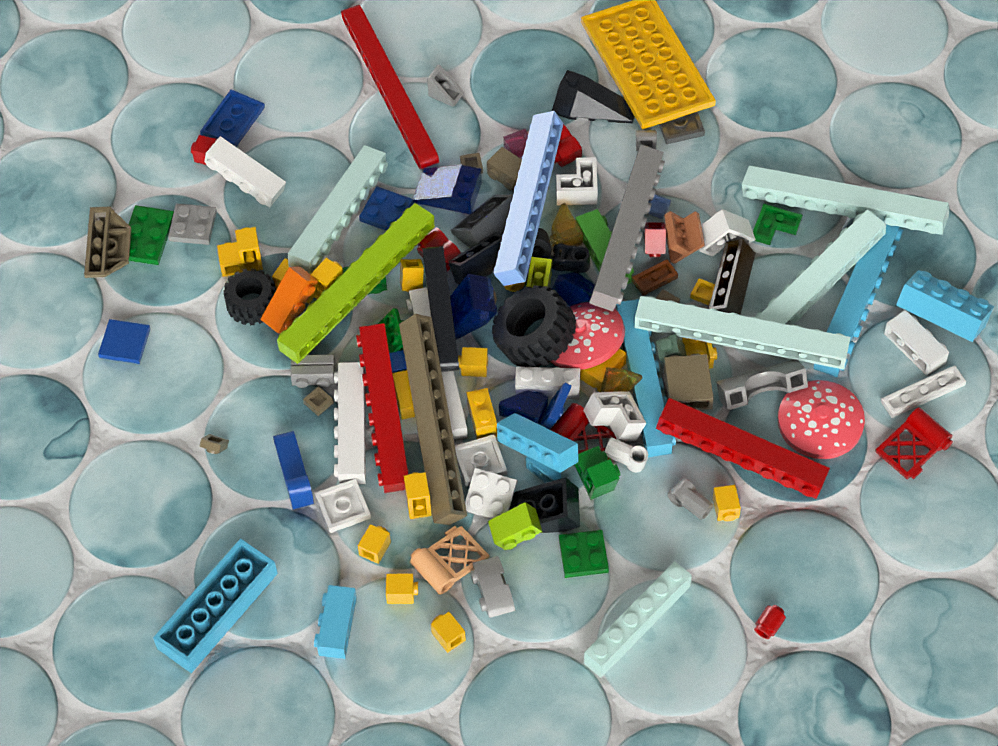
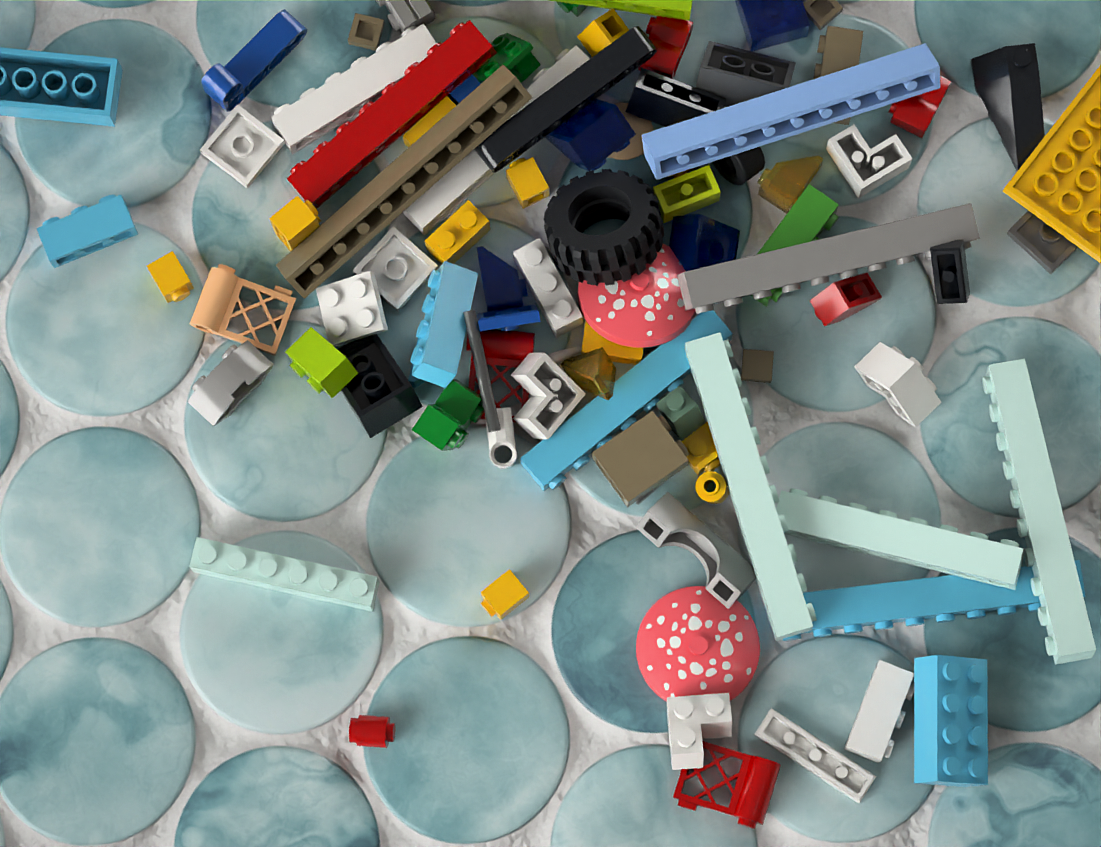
camera: 60 degrees right, 20 degrees up
(374, 543) = (212, 212): yellow brick -> none
(447, 631) = (146, 363): yellow brick -> none
(516, 142) = (883, 43): clear pink brick -> none
(570, 258) = (749, 207): black piece -> none
(581, 435) = (481, 371): none -> dark grey bar
(583, 553) = (342, 462): green plate -> none
(646, 138) = (994, 204): light grey brick -> none
(654, 277) = (785, 332): dark orange plate -> none
(659, 206) = (901, 277): medium blue tile -> none
(674, 176) = (950, 272): none -> black slope
(683, 235) = (862, 332): nougat bracket -> none
(685, 495) = (487, 541): light grey piece -> none
(702, 291) = (800, 404): yellow plate -> none
(728, 357) = (719, 494): none -> yellow brick
(733, 277) = (830, 432): dark brown brick -> none
(742, 448) = (584, 574): red brick -> none
(775, 219) = (963, 430): green plate -> none
(870, 440) = (691, 721): none -> white brick

